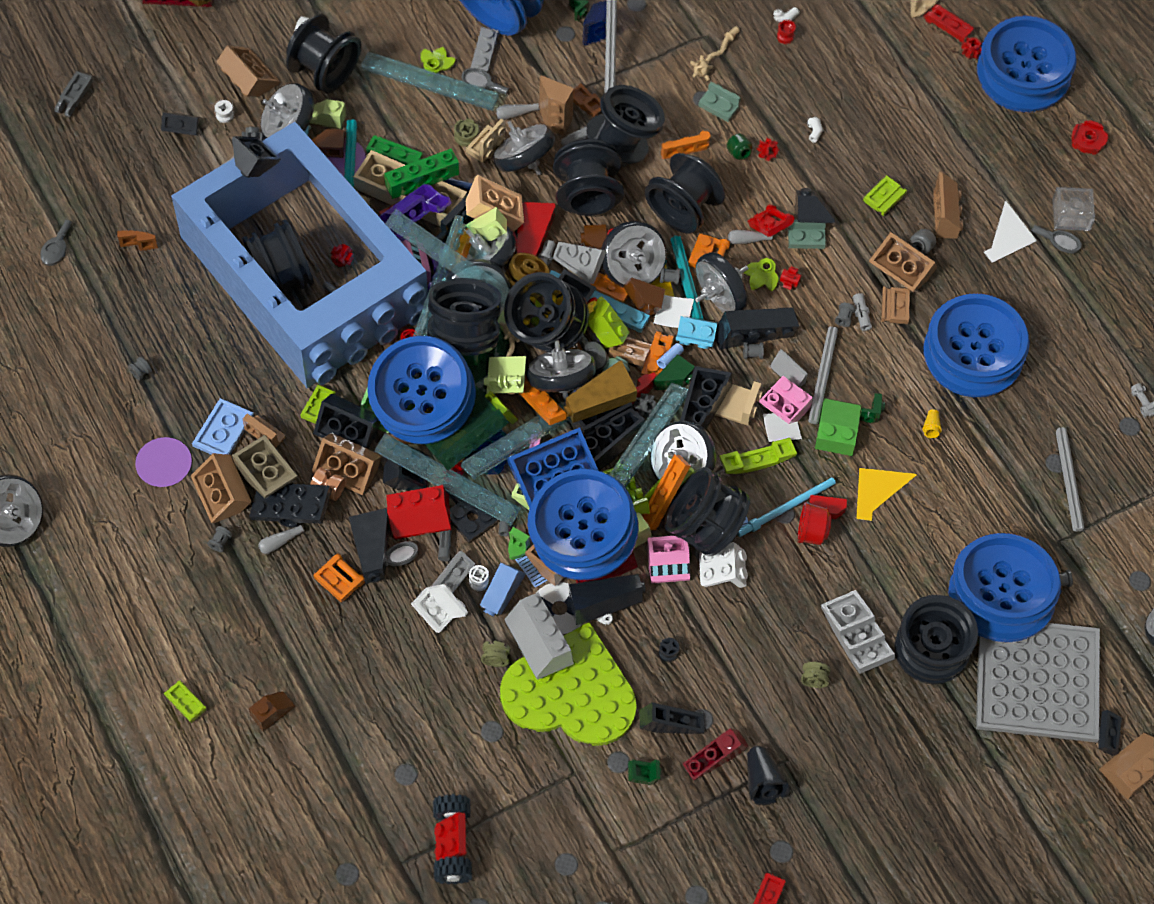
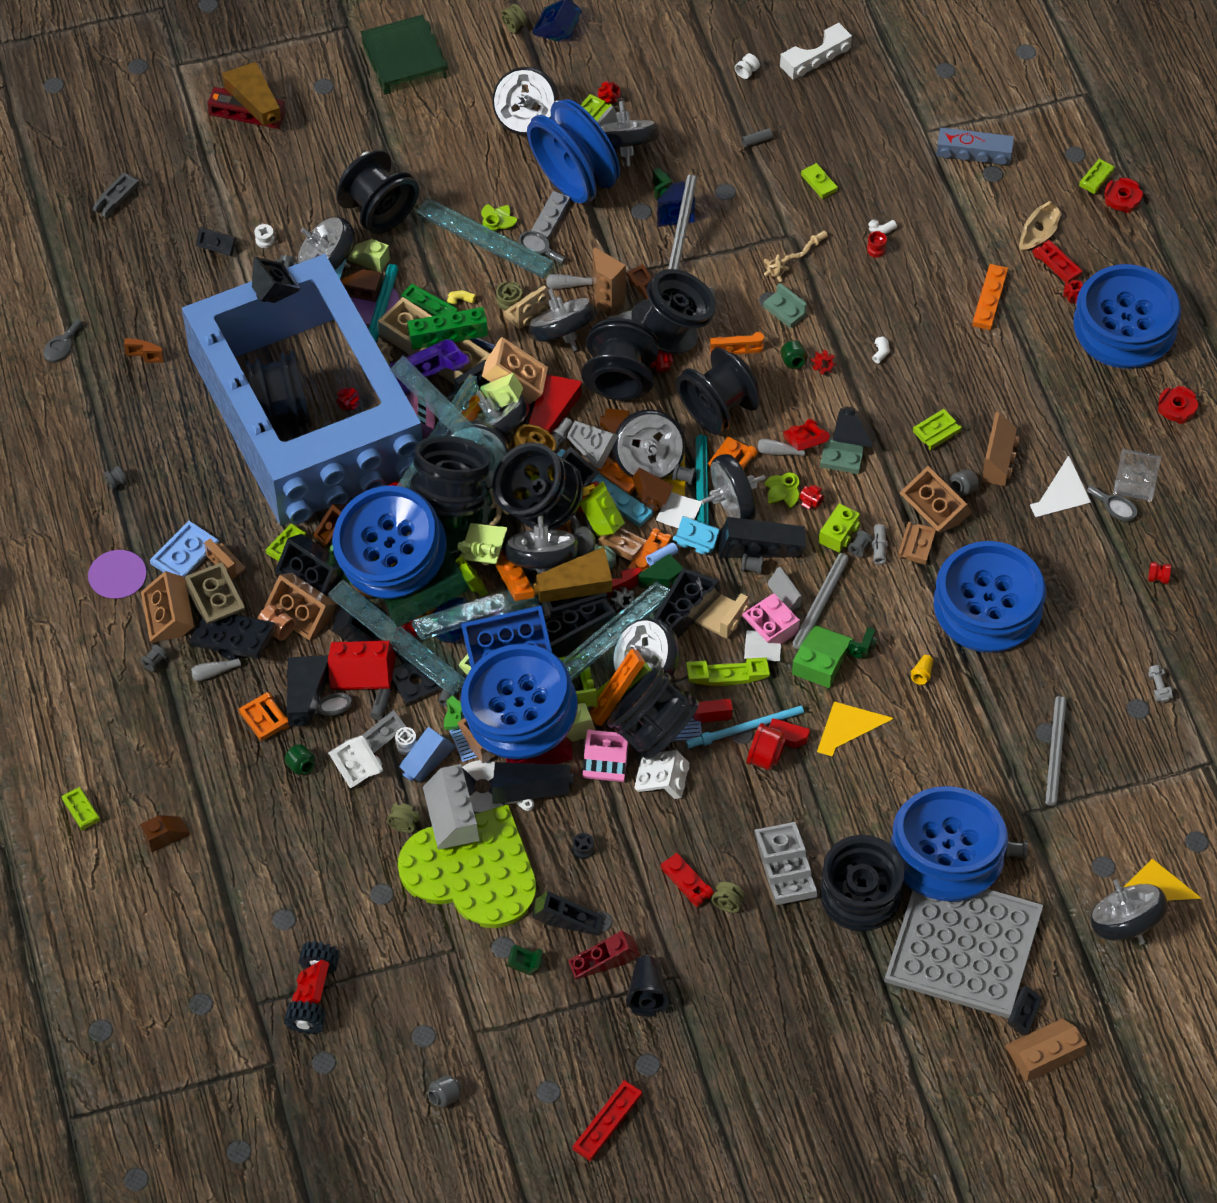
camera: 15 degrees right, 5 degrees down
(247, 71) = (298, 198): medium nougat slope -> none
(357, 380) = (325, 530): none -> reddish brown slope
(383, 614) = (300, 759): none -> dark green head
(422, 138) = (462, 295): none -> light yellow arm
(624, 173) = (662, 362): none -> red gear
(760, 495) = (713, 711): none -> red piece
(771, 664) = (686, 879): none -> red plate
(823, 303) = (839, 528): none -> lime brick
(898, 64) = (990, 297): none -> orange plate
(1115, 296) = (1159, 572): none -> red wheel

